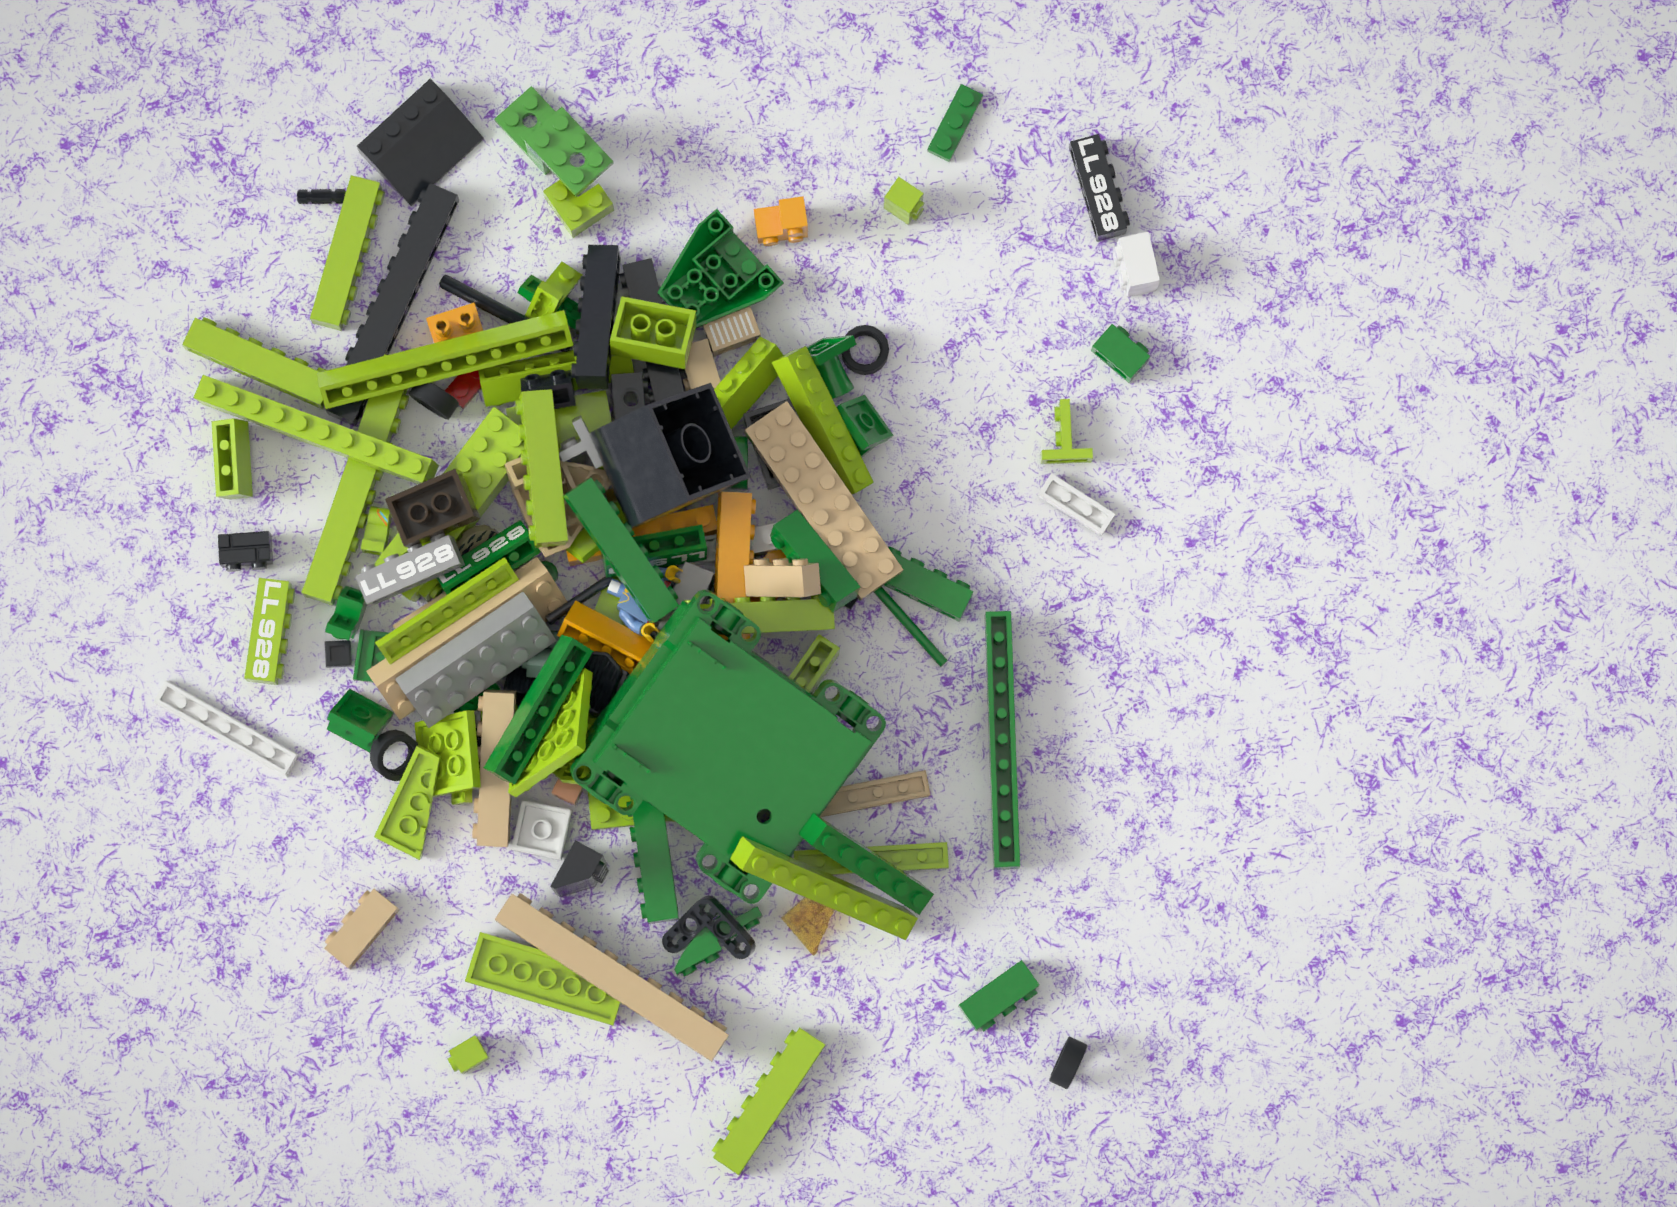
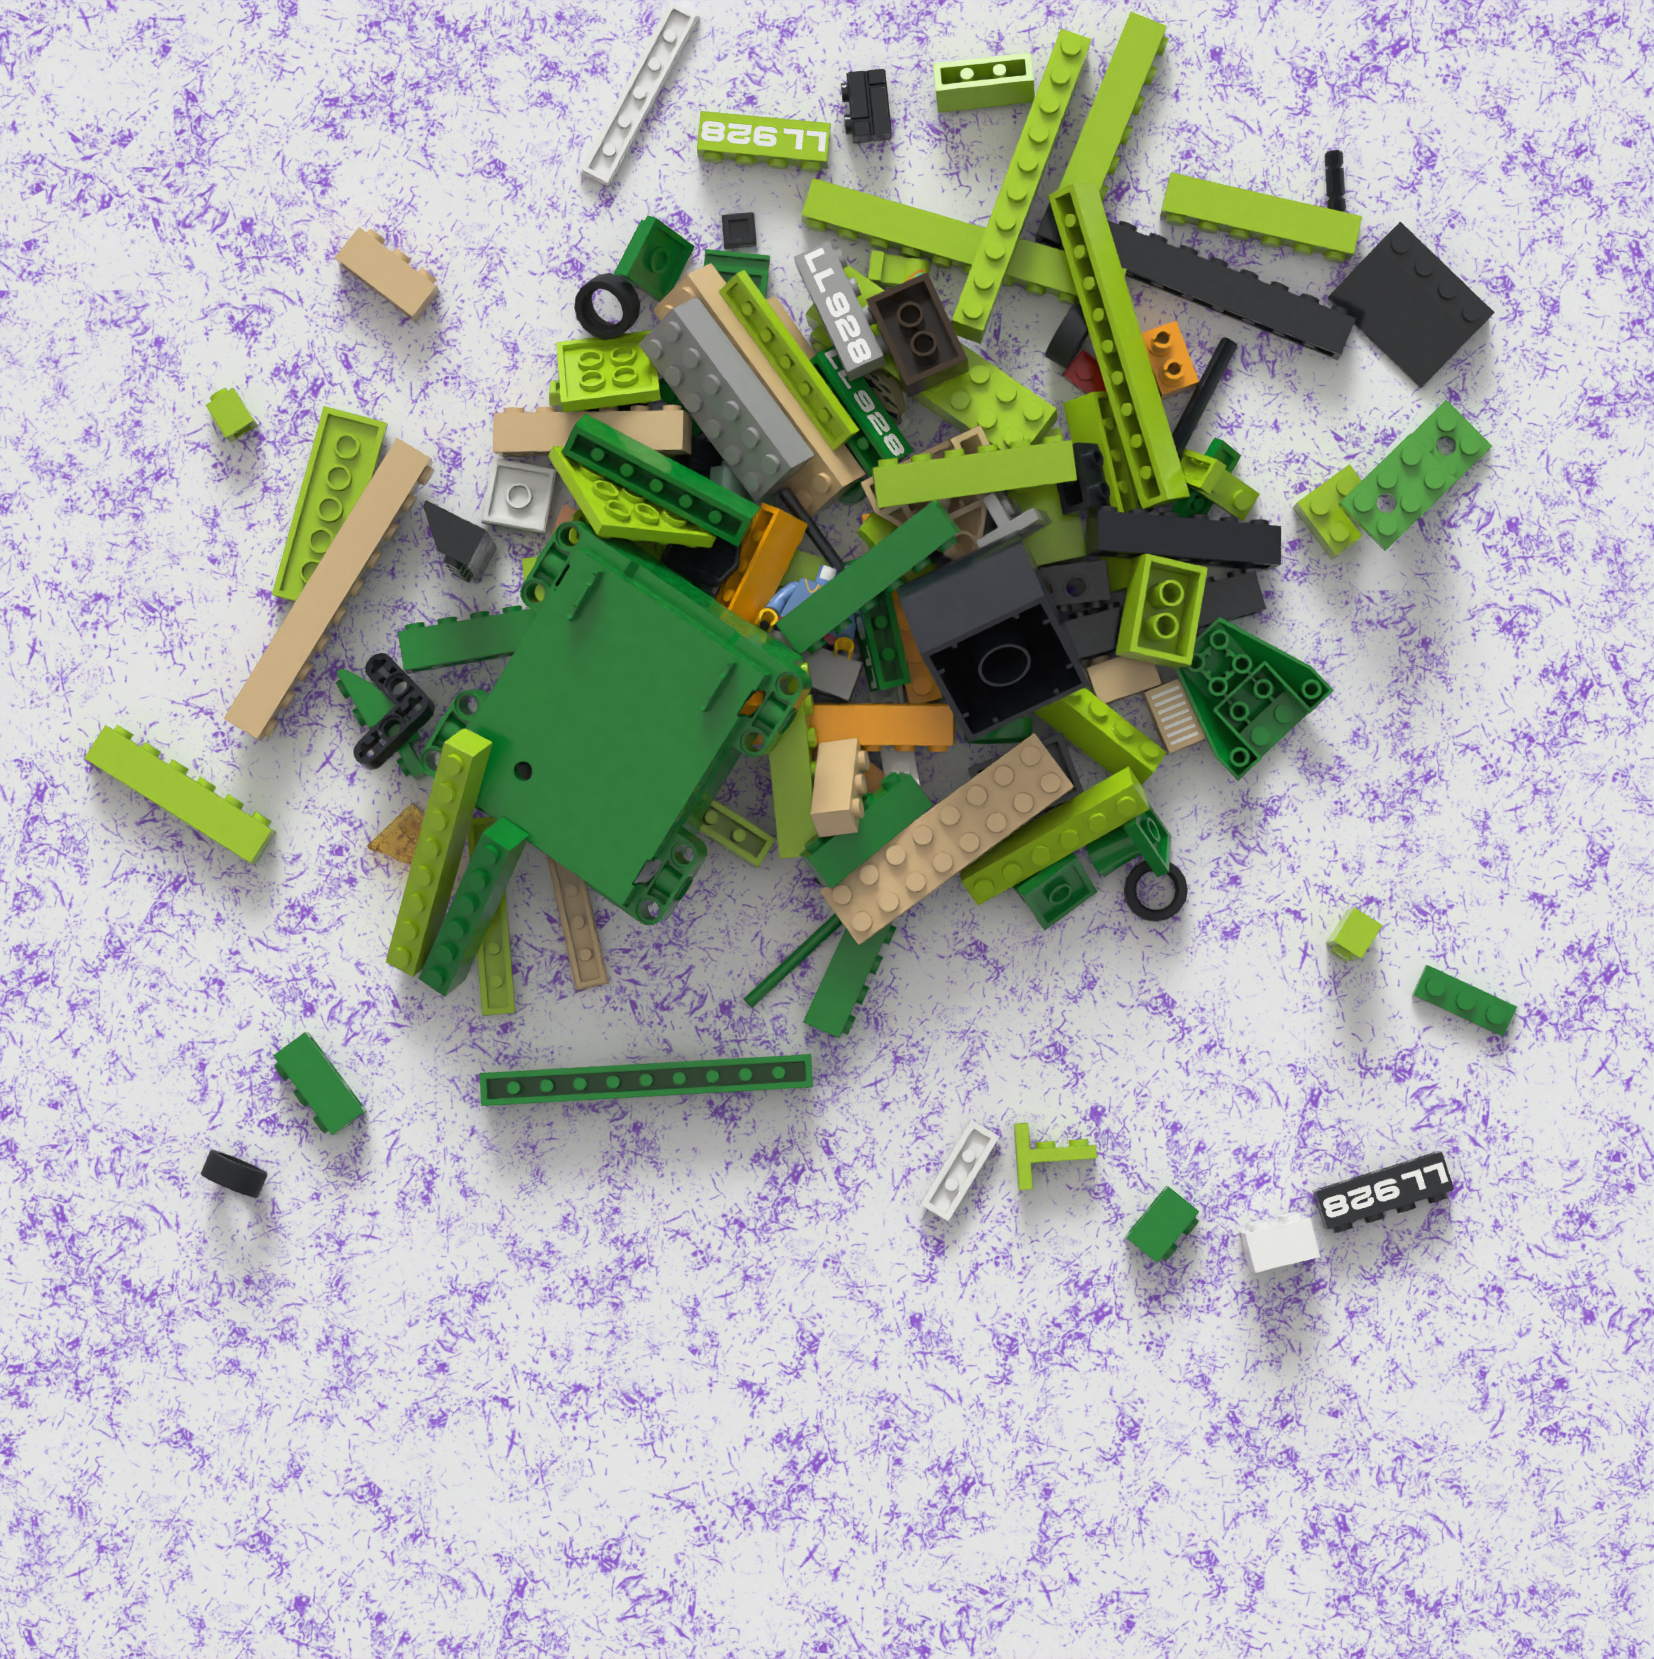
camera: 95 degrees right, 5 degrees up
(347, 614) = (784, 237): green brick -> none
(409, 810) = (538, 327): lime wing -> none
(782, 222) = (1320, 776): light orange brick -> none

